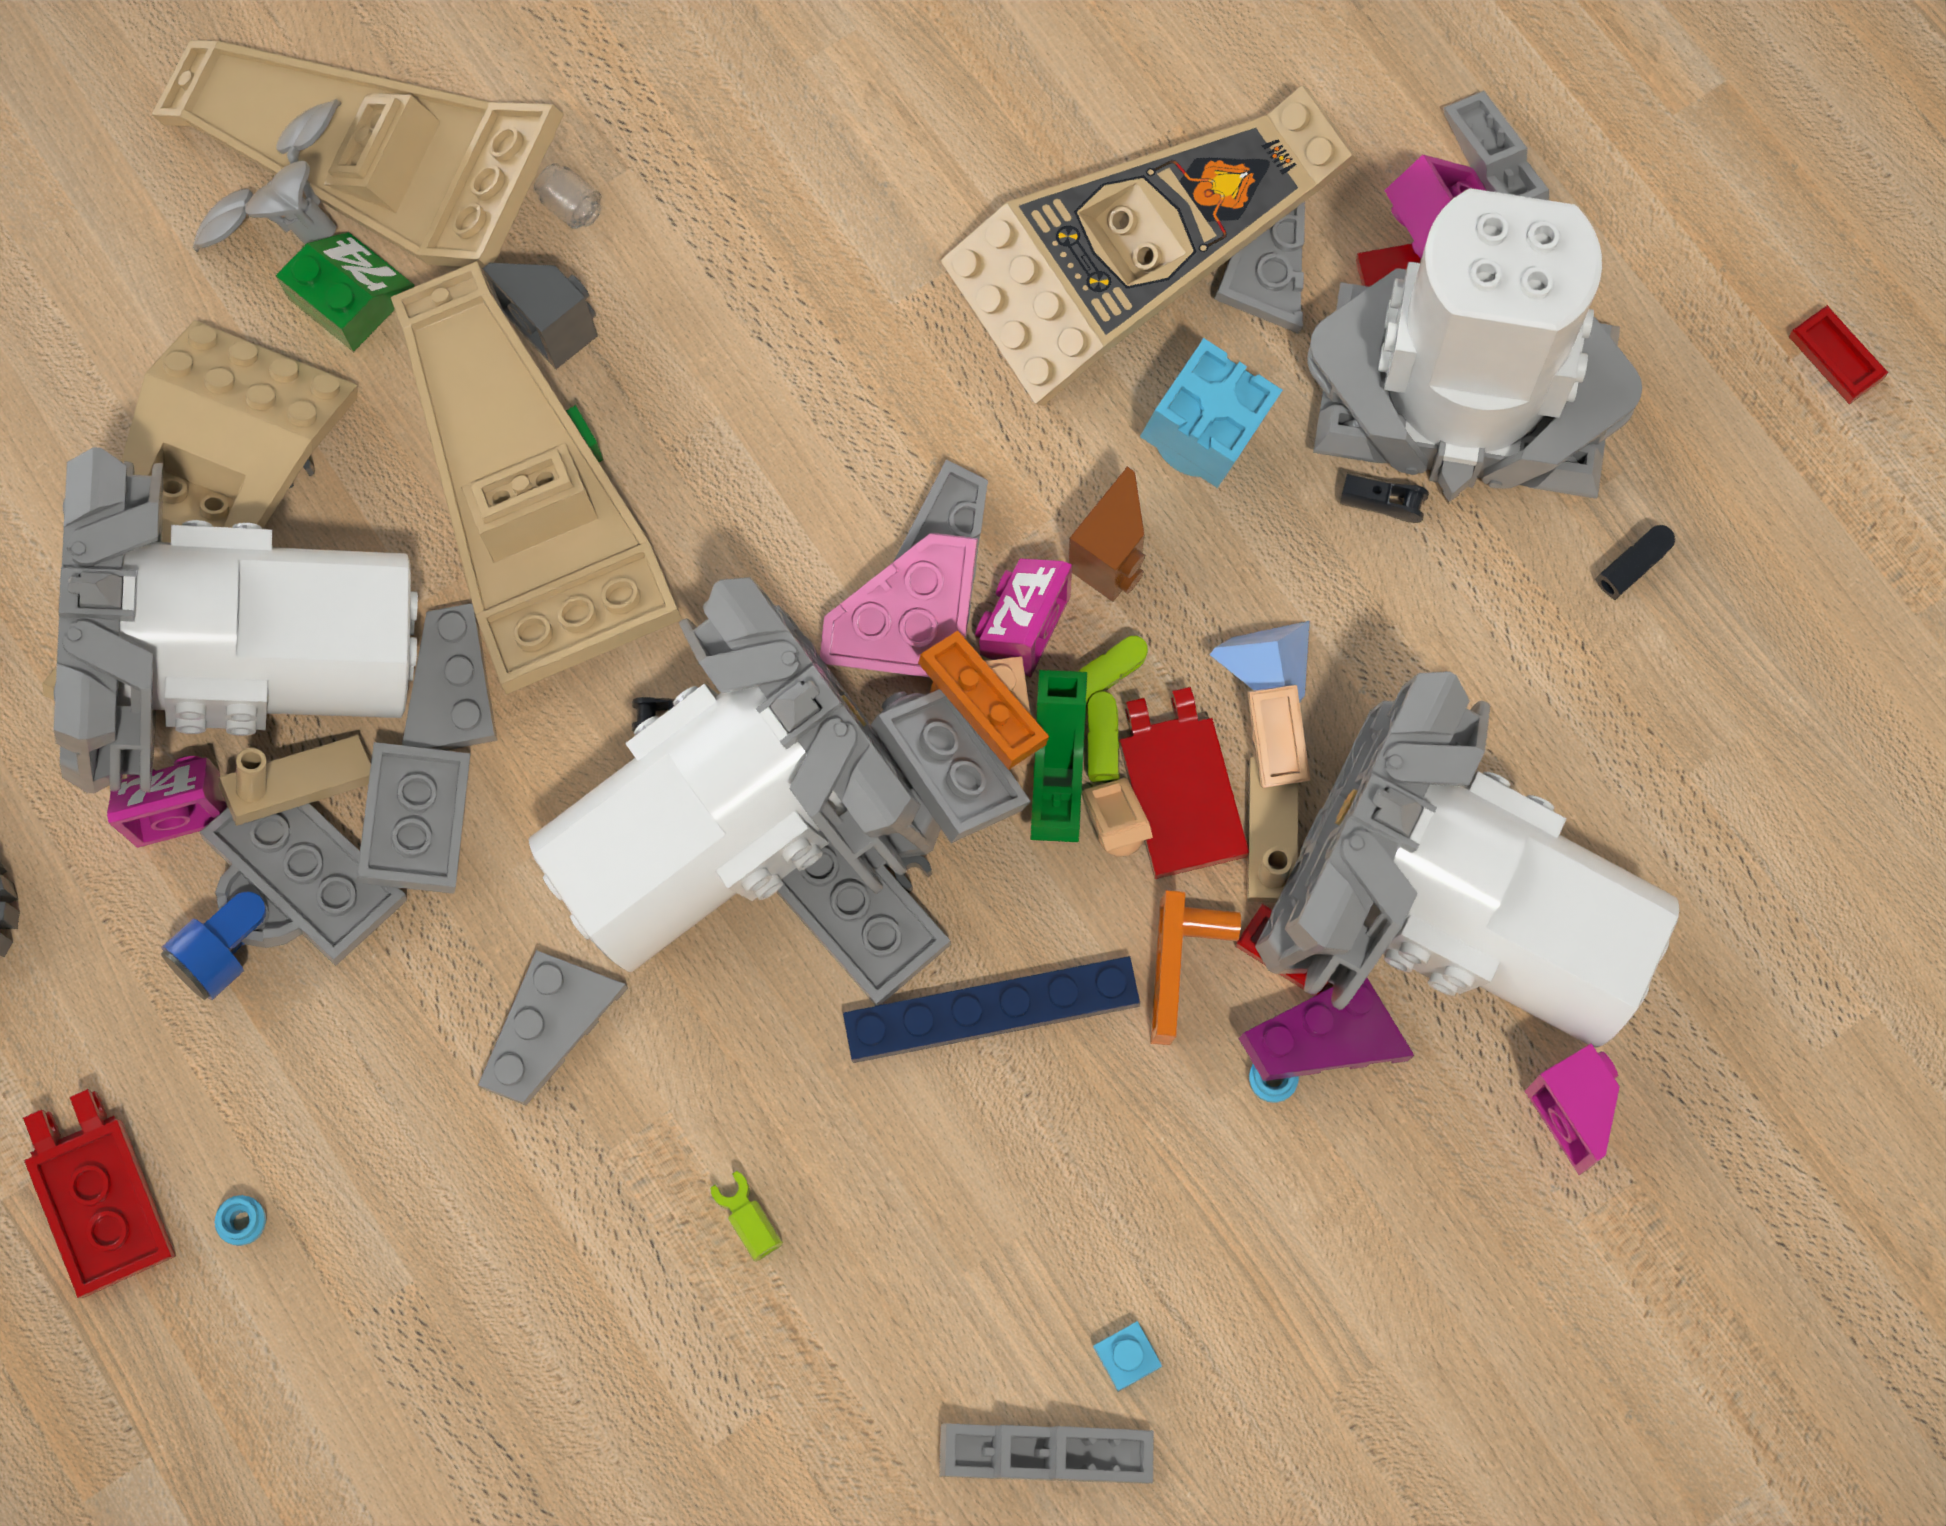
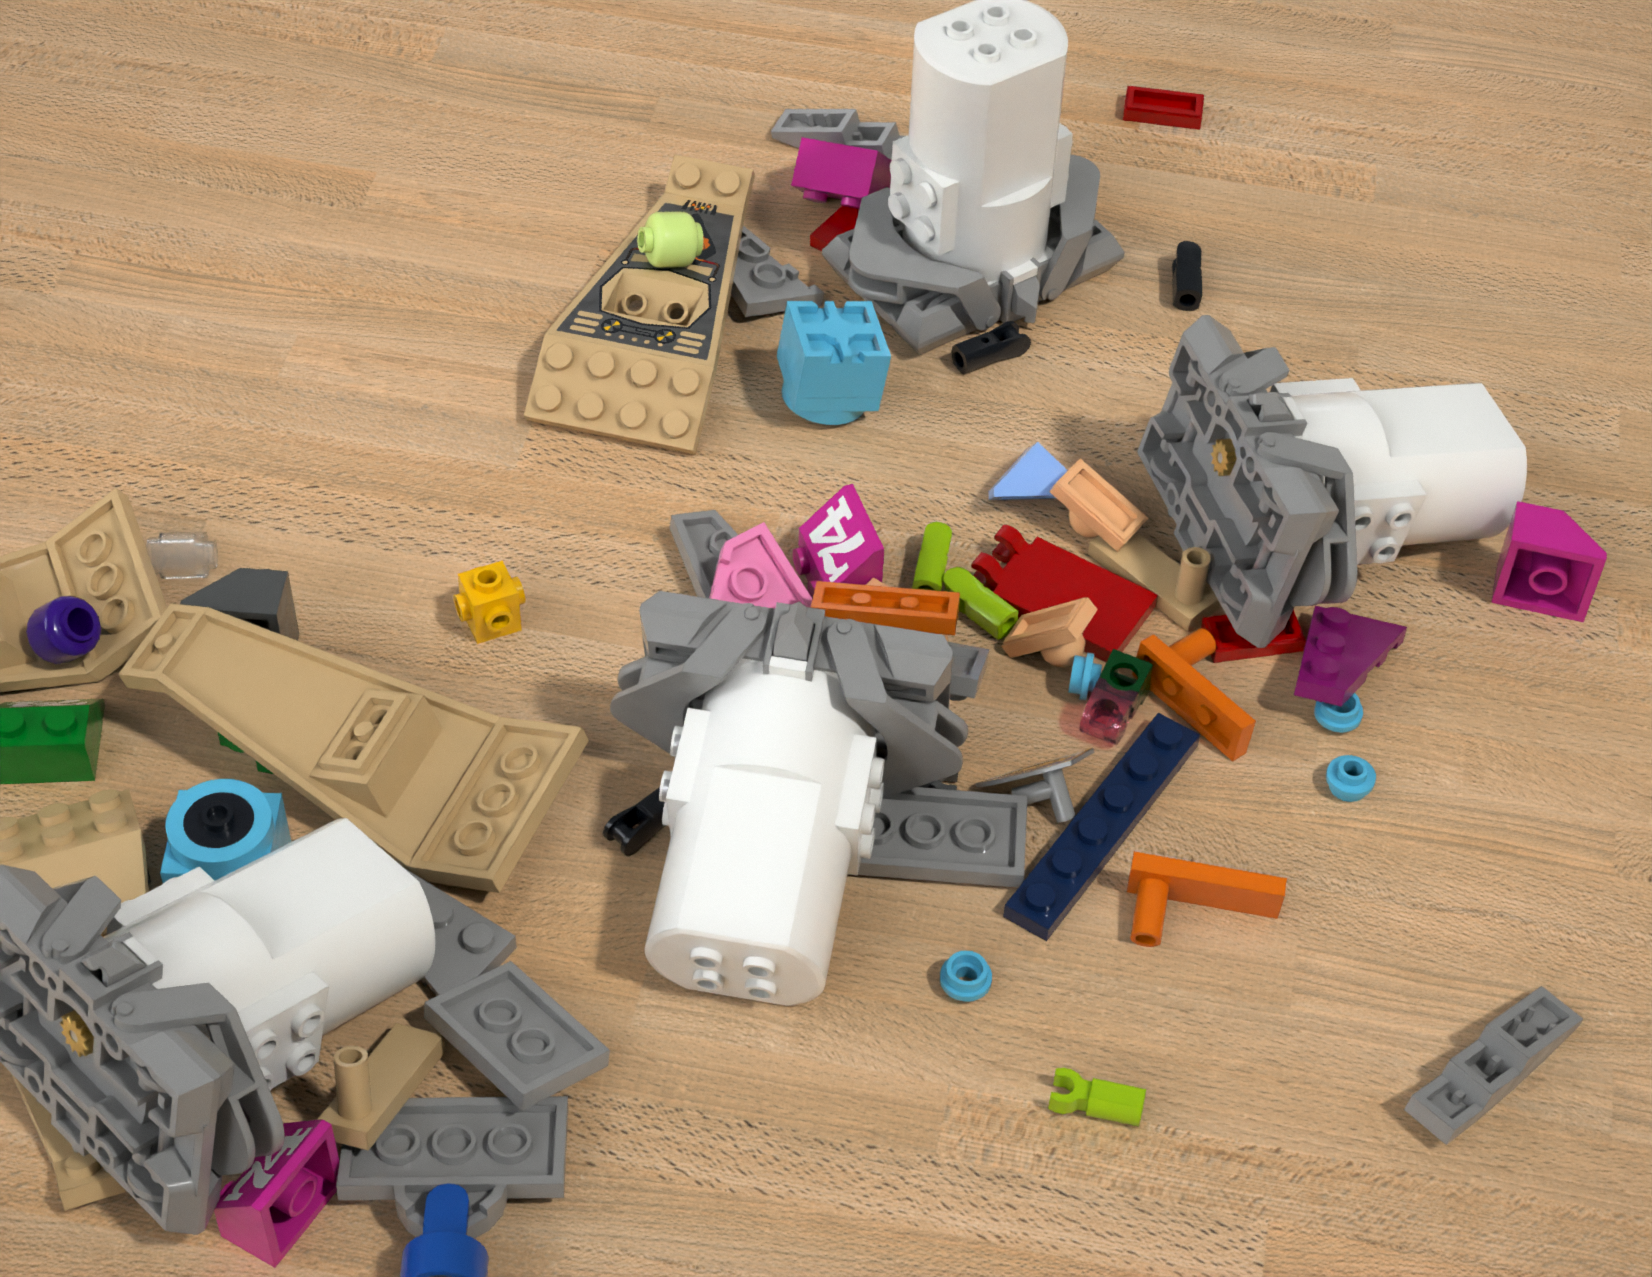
camera: 50 degrees left, 25 degrees down
(357, 499) = (222, 828): none -> medium azure piece
(415, 209) = (63, 629): none -> dark purple head
(545, 1023) = (785, 1103): light grey wing -> none
(738, 427) = (489, 601): none -> yellow brick
(750, 1030) = (968, 965): none -> medium azure plate
(966, 1094) = (1164, 878): none -> orange piece
(978, 933) = (1052, 787): none -> light grey shield
(1060, 762) = (1009, 653): green arch -> none
(1106, 917) = (1116, 697): none -> clear pink leg
(1108, 876) = (1084, 675): none -> medium azure plate
(1110, 540) = (857, 457): dark orange slope -> none
(1127, 1356) = (1464, 958): medium azure plate -> none
(1194, 184) = (670, 239): none -> yellowish green head
(1213, 1155) = (1350, 778): none -> medium azure plate

